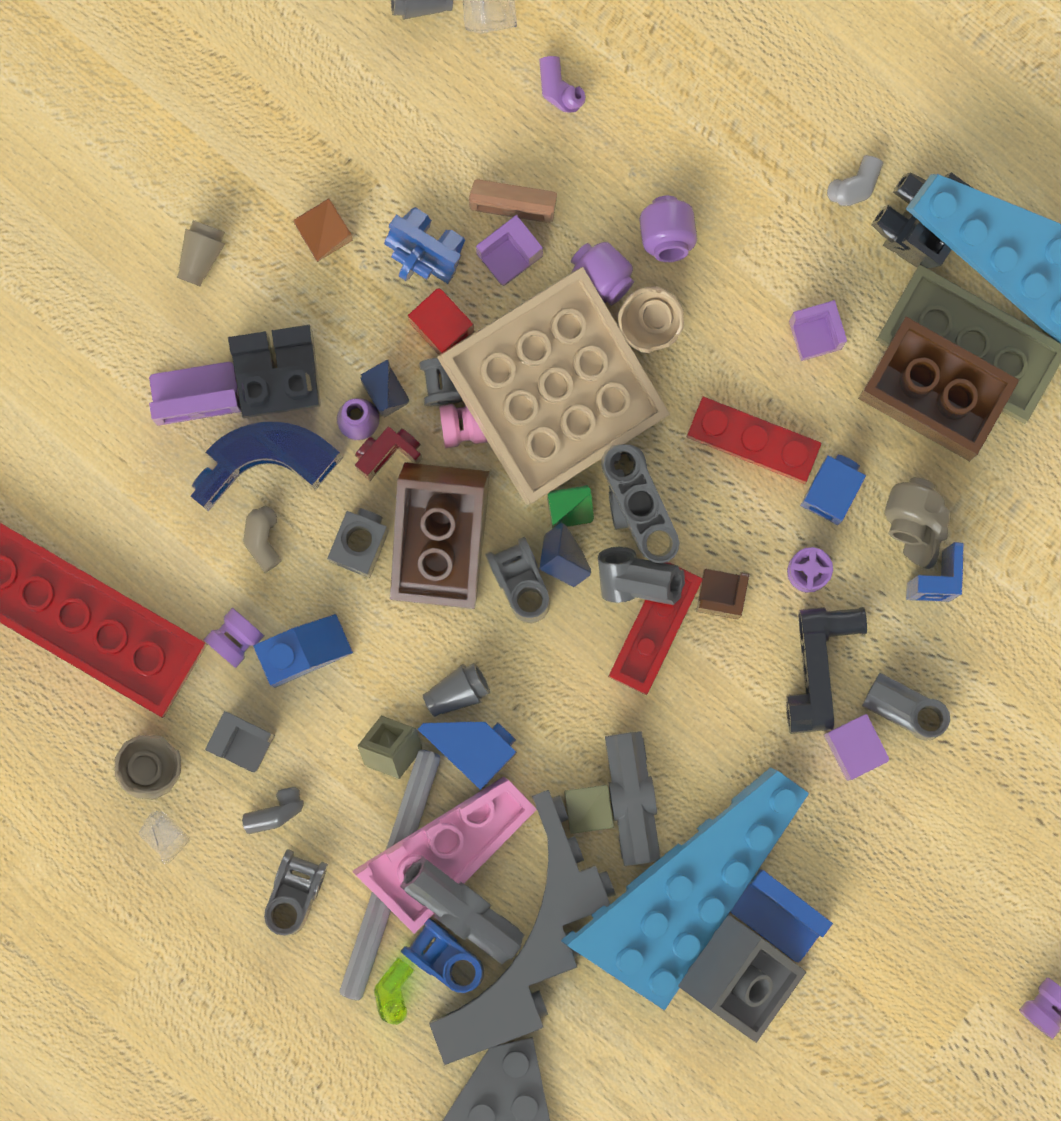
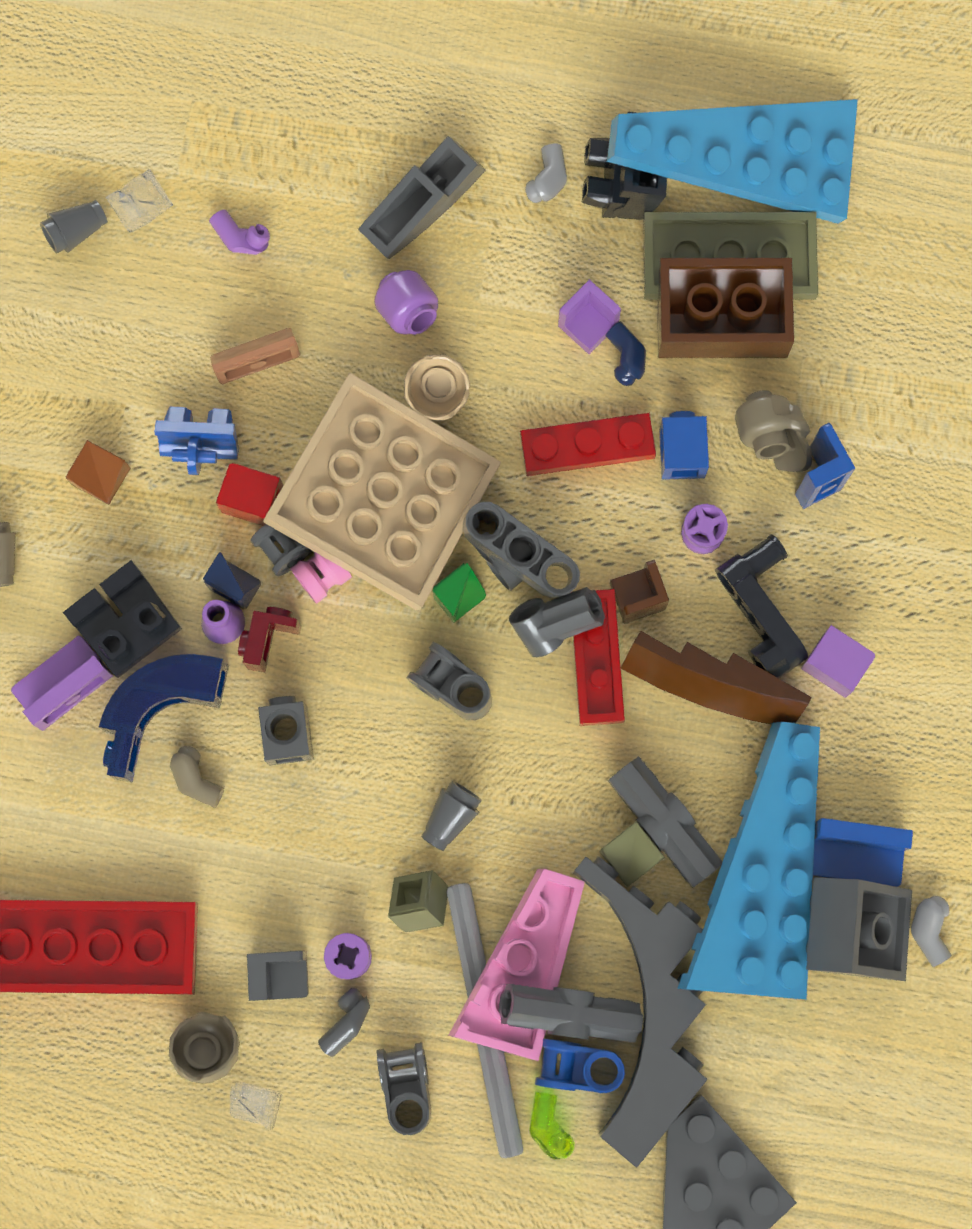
camera: 25 degrees left, 5 degrees down
(238, 628) = (222, 872): medium lavender wheel -> none
(302, 650) = (288, 858): blue slope -> none
(313, 766) = (357, 959): none -> medium lavender wheel
(438, 534) = (354, 684): reddish brown slope -> none
(472, 747) = (493, 858): blue slope -> none
(509, 250) = (276, 398): medium lavender panel -> none
(563, 557) = (478, 640): dark blue slope -> none
(606, 270) = (373, 365): medium lavender head -> none
(734, 142) = (421, 198): none -> dark grey slope
(751, 718) = (729, 688): none -> reddish brown slope
(799, 1010) = (927, 927): none -> light grey arm
(837, 383) = (632, 354): none -> dark blue arm
(902, 707) = (858, 601): dark grey piece -> none

